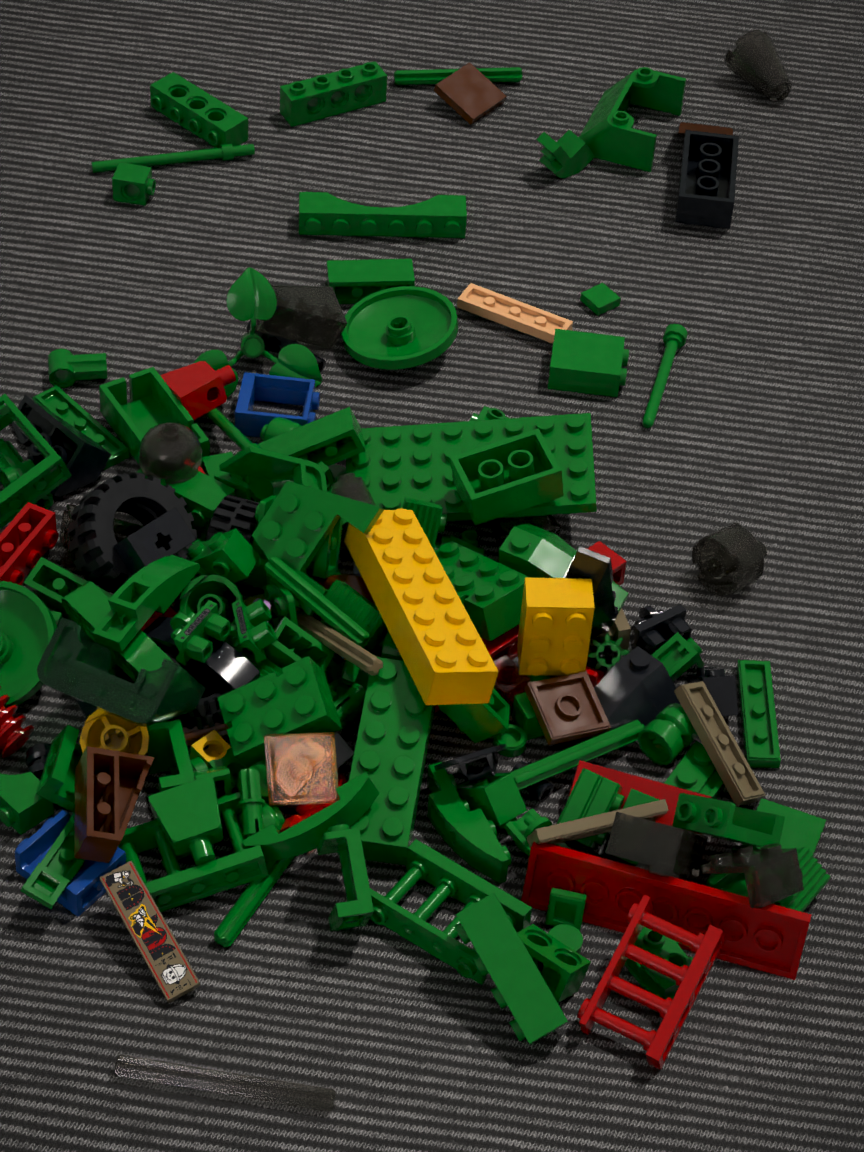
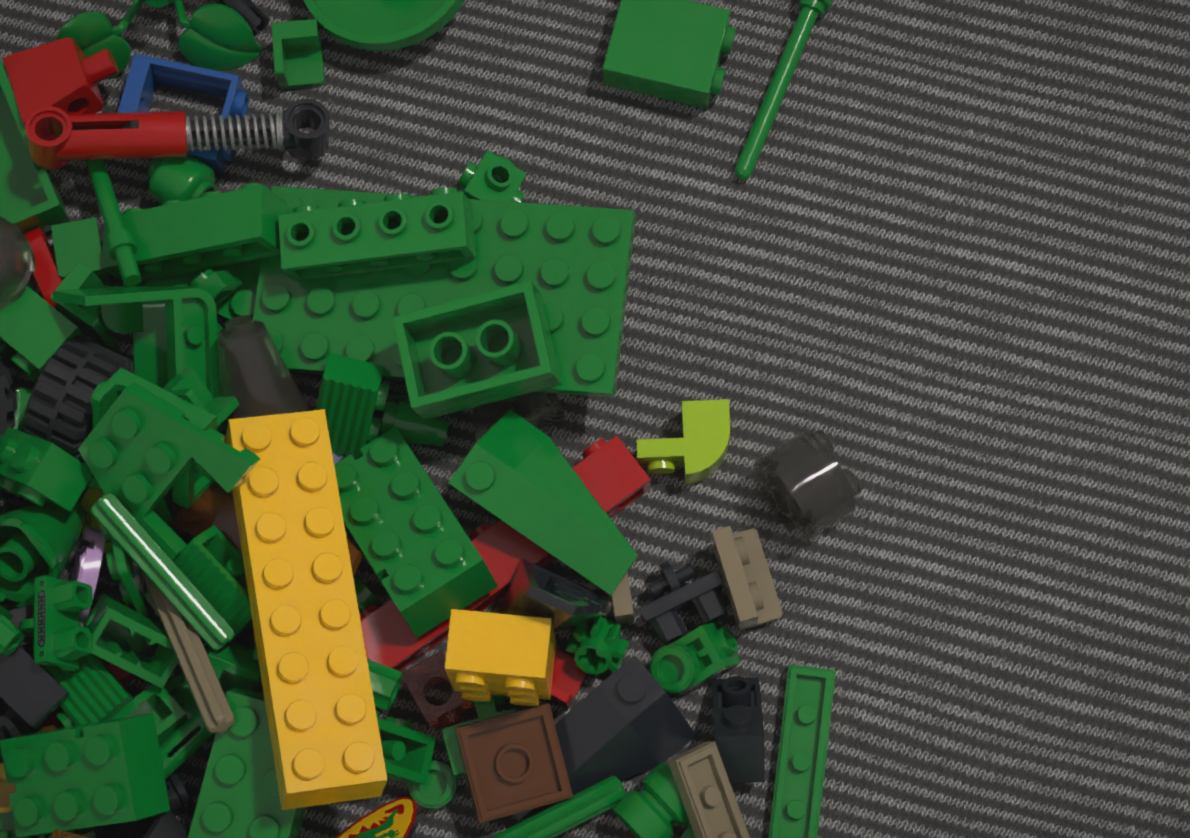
camera: 15 degrees right, 30 degrees up
(207, 400) = (171, 134): none -> piece
(347, 376) = (298, 54): none -> green panel
(427, 434) = (377, 234): none -> green brick
(649, 550) = (701, 448): none -> lime brick
(668, 655) = (675, 667): none -> green tile
(699, 615) = (746, 577): none -> dark tan bracket

